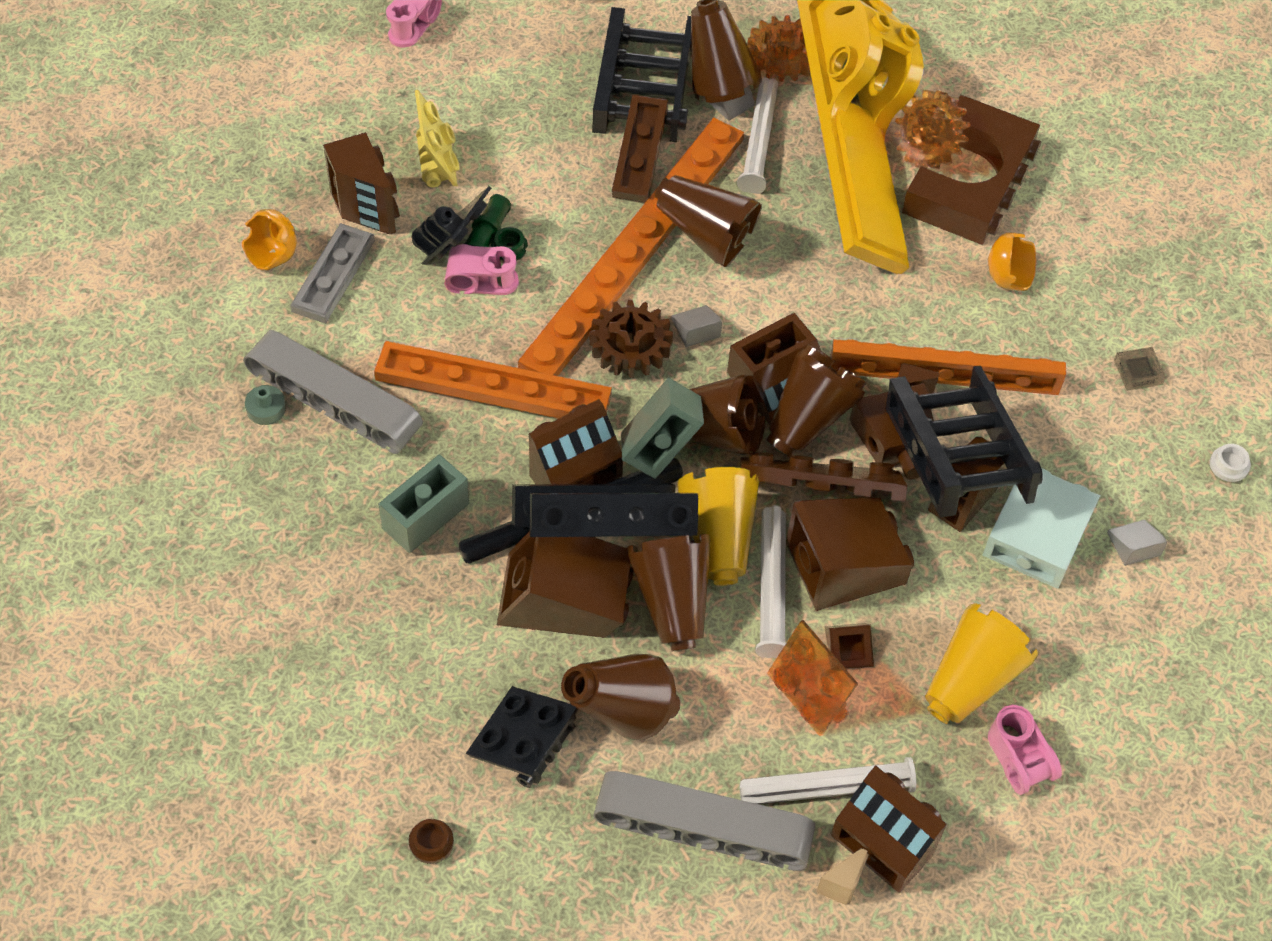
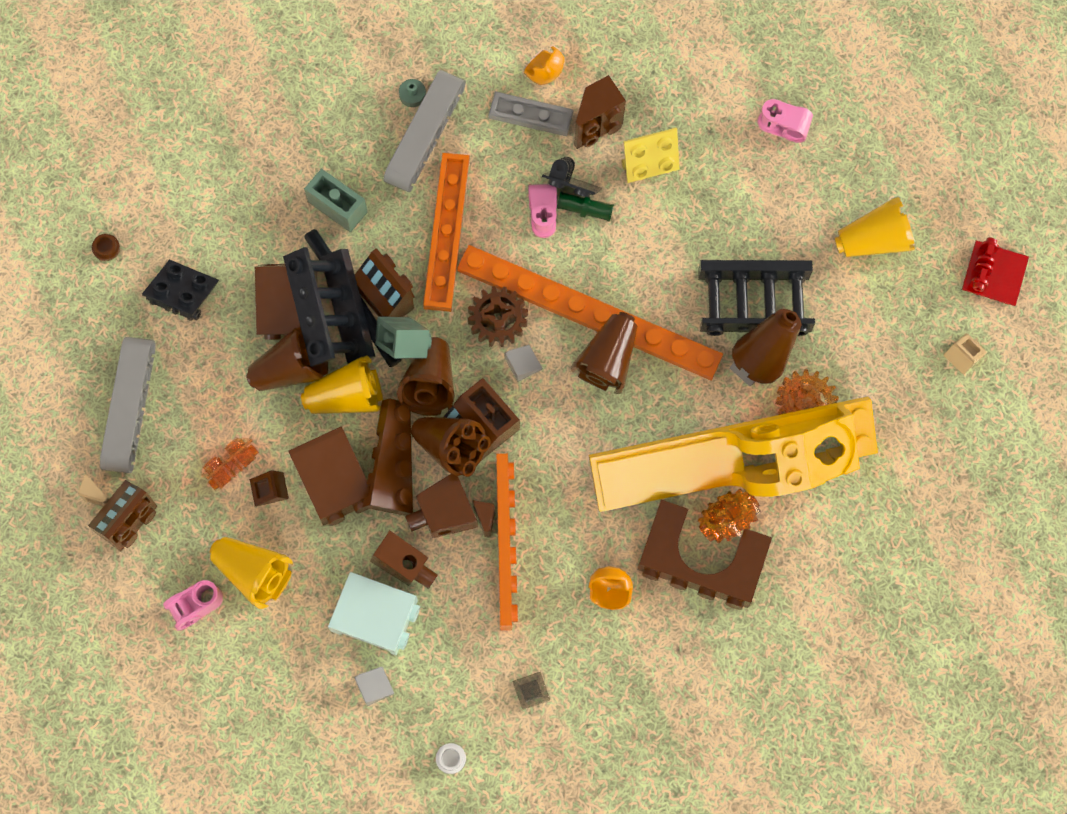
camera: 85 degrees right, 15 degrees up
(511, 236) = (573, 218): dark green plate -> none
(625, 693) = (198, 335): reddish brown cone -> none
(640, 148) = (674, 301): reddish brown plate -> none
(752, 178) = (714, 390): white axle -> none
(772, 582) = (305, 433): white axle -> none
(819, 783) = (162, 481): white axle -> none
(935, 460) = (389, 517): black fence -> none

